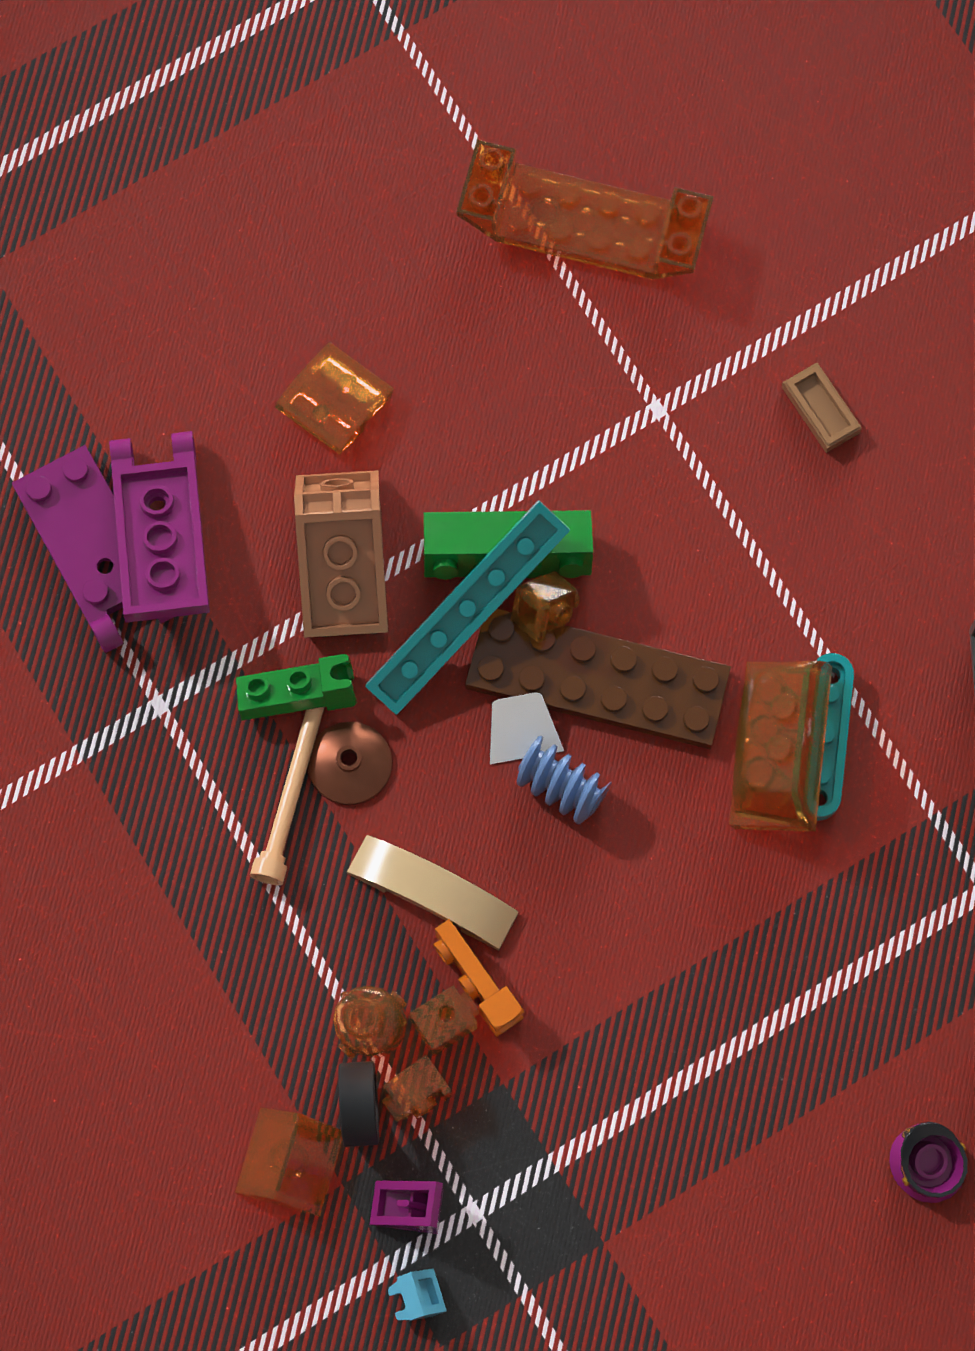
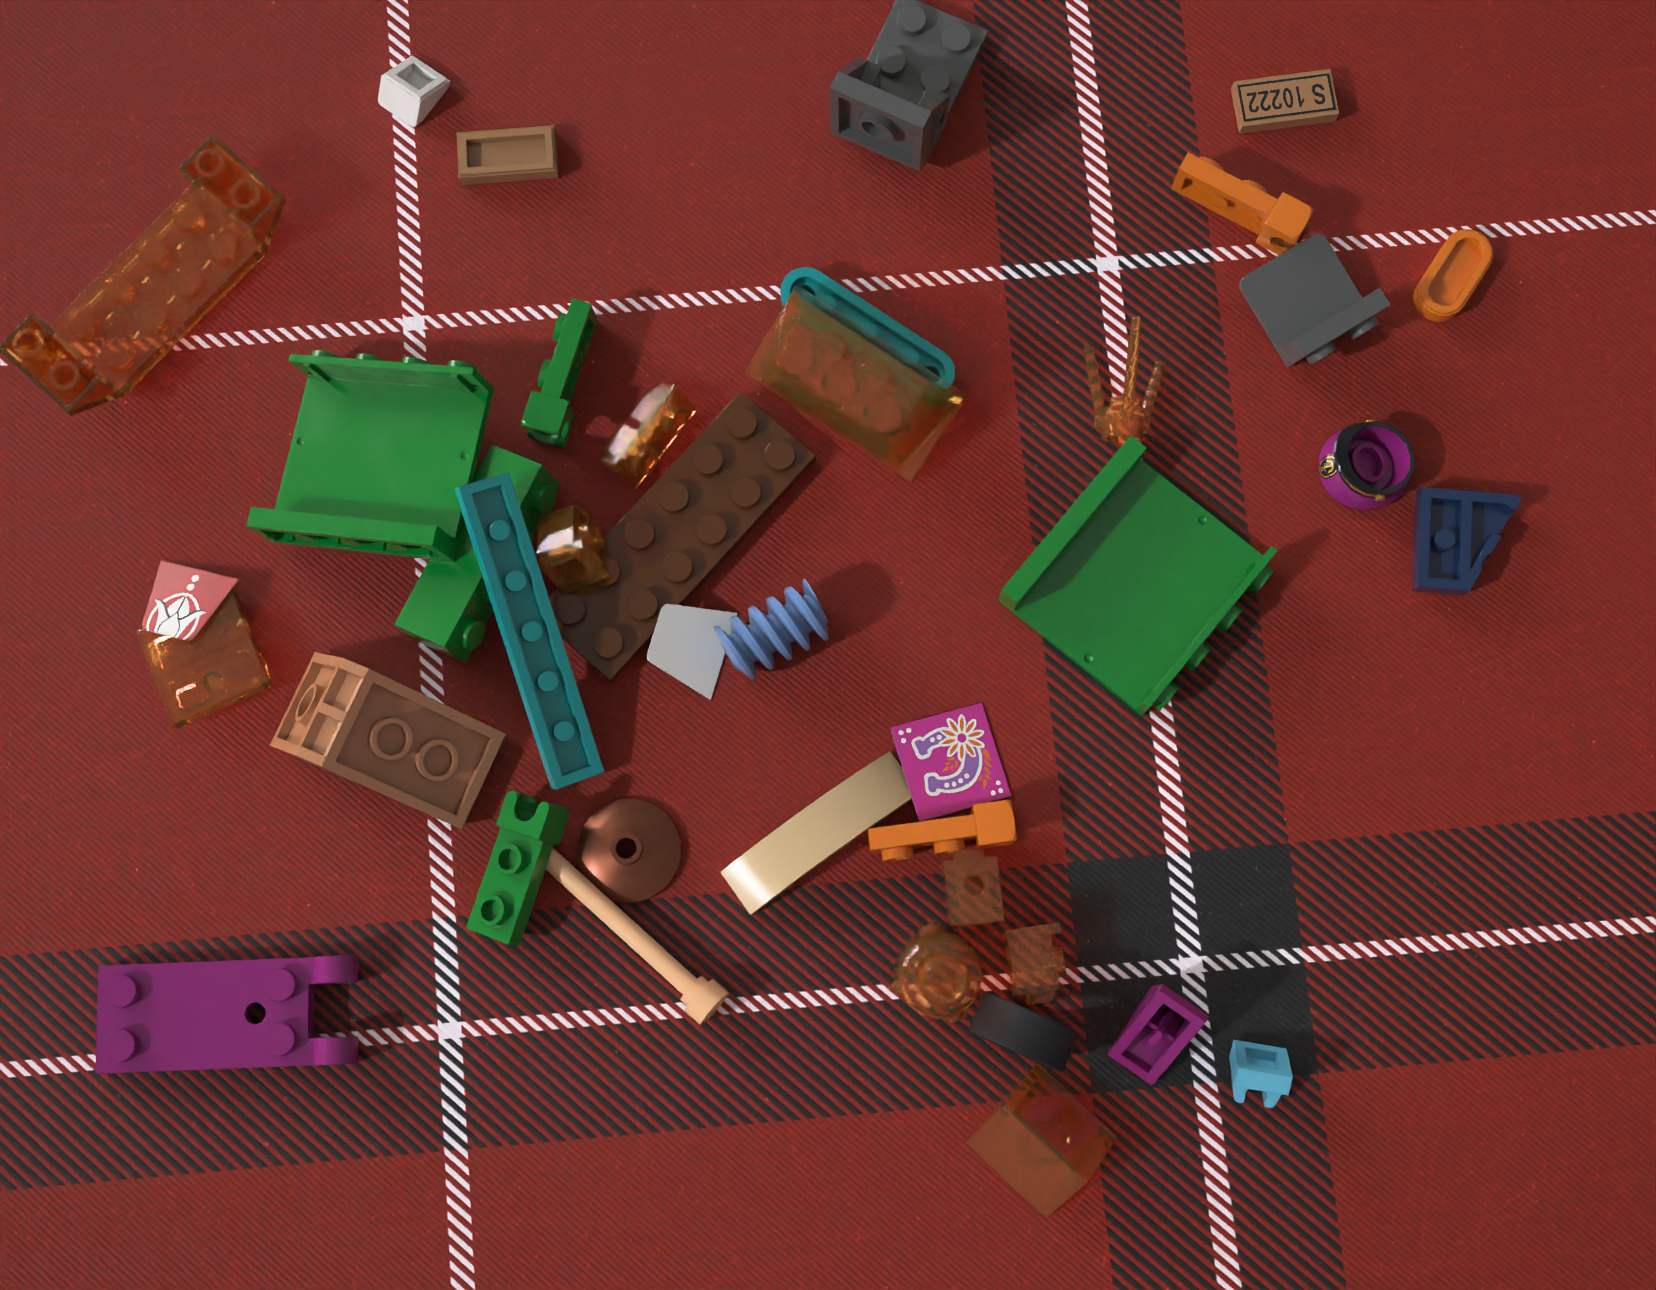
camera: 60 degrees left, 5 degrees up
(159, 548) = (271, 938): magenta hinge -> none
(368, 361) = (184, 600): none -> sticker
(533, 959) = (950, 761): none -> dark pink sticker
(540, 438) = (379, 456): none -> green panel
(639, 539) = (549, 412): none -> green plate
(681, 621) = (662, 417): none -> clear orange hinge
(744, 1027) = (1135, 581): none -> green panel
(833, 313) = (411, 90): none -> white slope
(864, 958) = (1123, 414): none -> clear orange plant
(909, 1257) = (1455, 536): none -> dark blue wing

